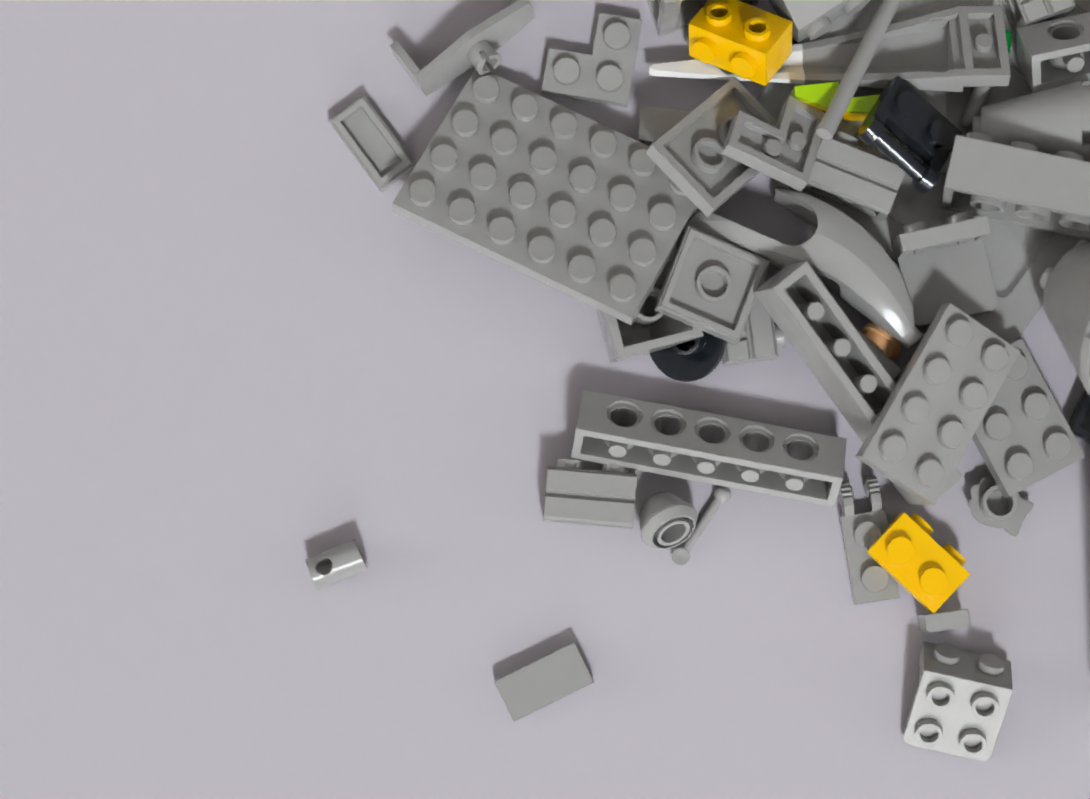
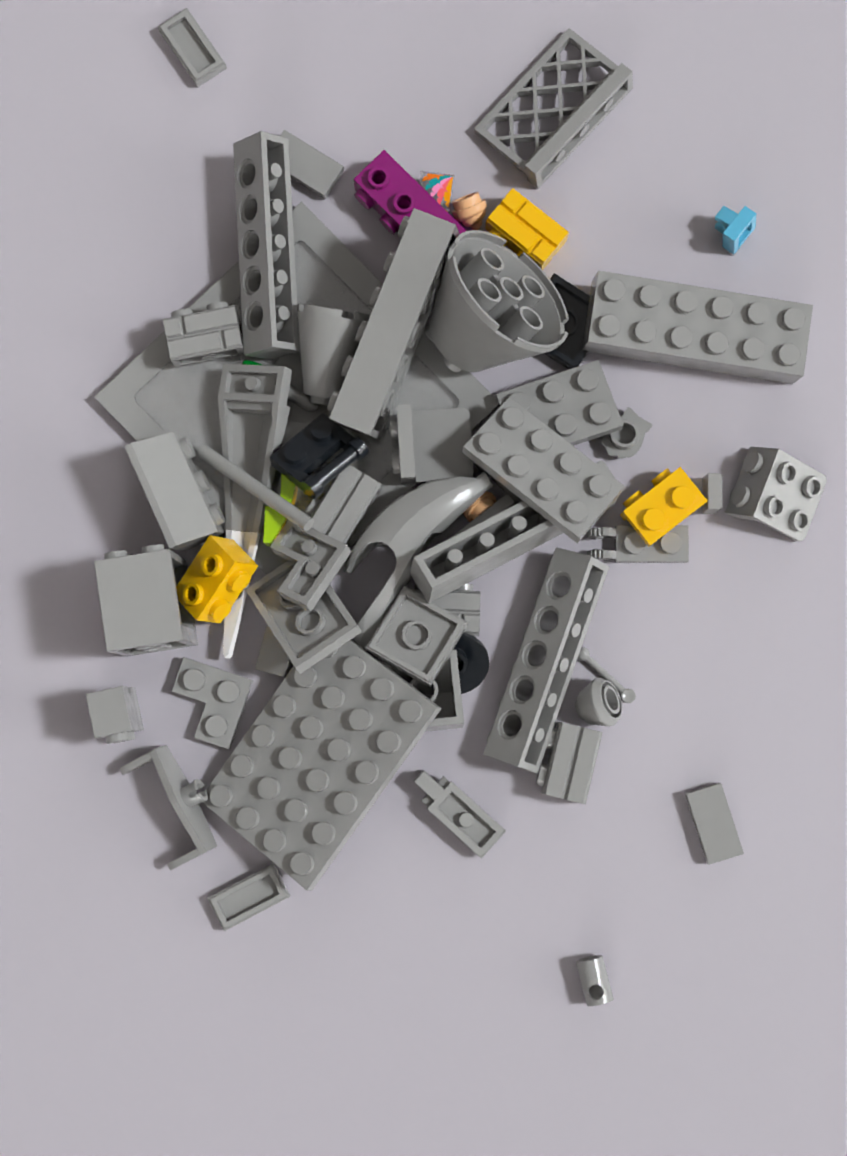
camera: 80 degrees left, 0 degrees up
(508, 374) = (460, 813): none -> light grey hinge

